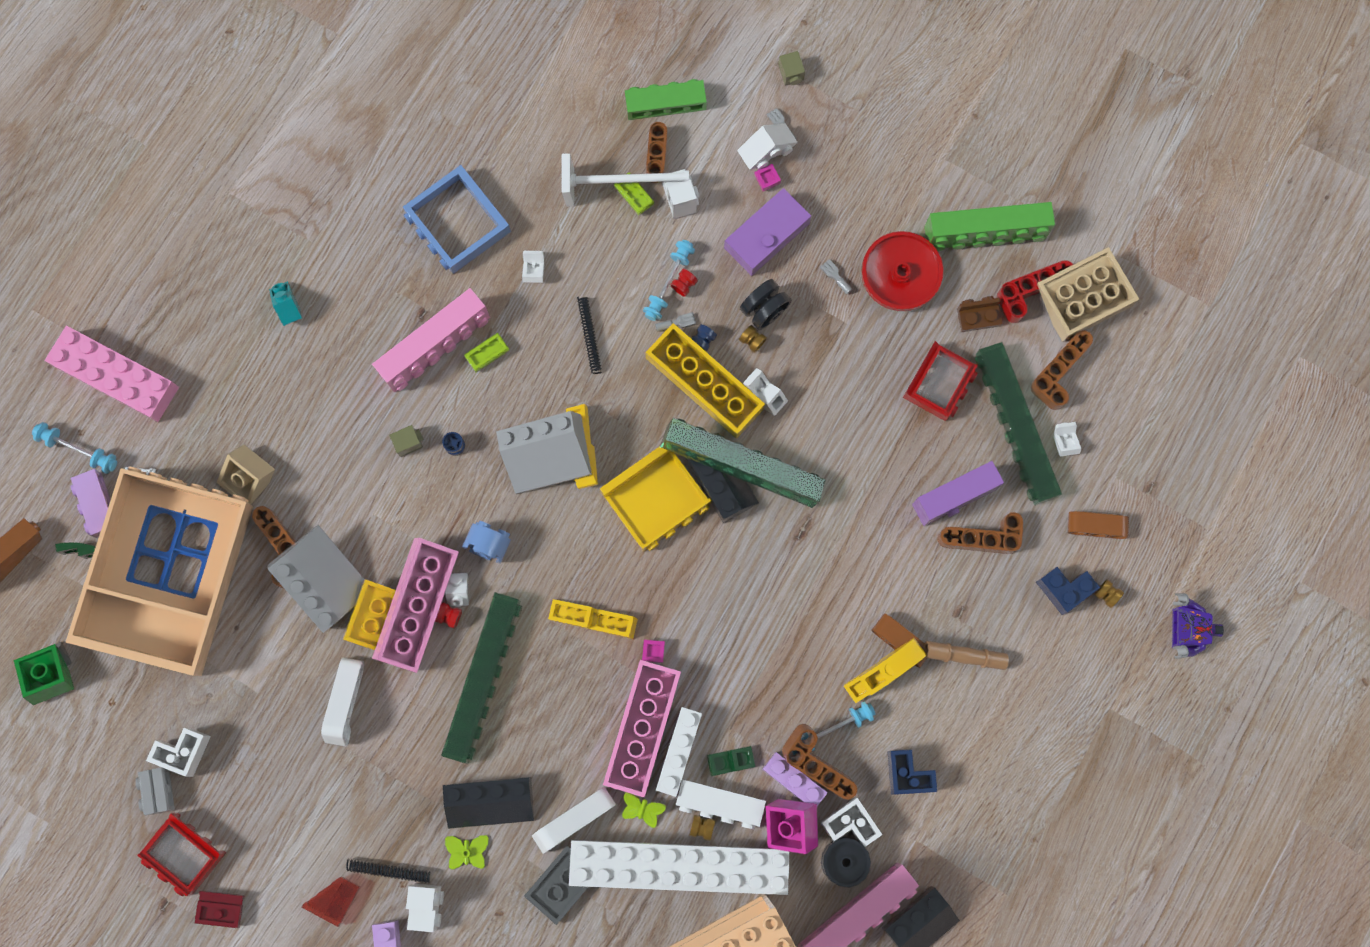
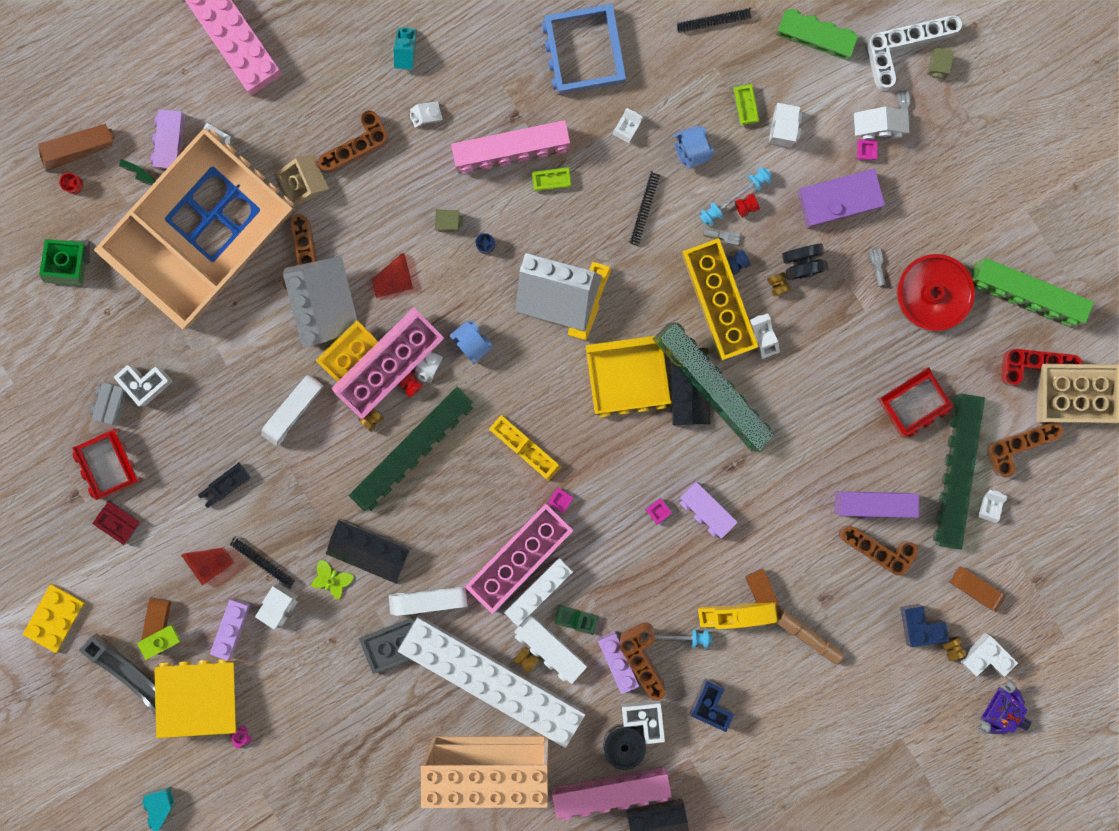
camera: 30 degrees right, 10 degrees up
(12, 592) = (67, 183): none -> red wheel
(41, 432) = (158, 63): medium azure axle -> none
(277, 418) = (351, 146): none -> dark orange beam
(312, 811) = (226, 484): none -> black hinge
(335, 352) = (425, 113): none -> white bracket
(381, 523) = (393, 278): none -> clear red wing
(427, 669) = (371, 419): none -> pearl gold wheel
(563, 130) = (714, 17): none -> black piece
(570, 179) = (698, 66): white tile -> none
(604, 254) = (693, 147): none -> medium blue brick
(642, 809) = (489, 625): lime piece -> none
(656, 143) = (789, 70): dark orange beam -> none
(750, 65) = (906, 40): none -> white beam
(754, 611) = (658, 511): none -> dark pink plate
(792, 826) = (597, 697): dark pink brick -> none
(801, 585) = (707, 510): none -> lavender brick
(979, 314) = (979, 362): reddish brown bracket -> none
(1142, 580) = (987, 652): none -> white brick

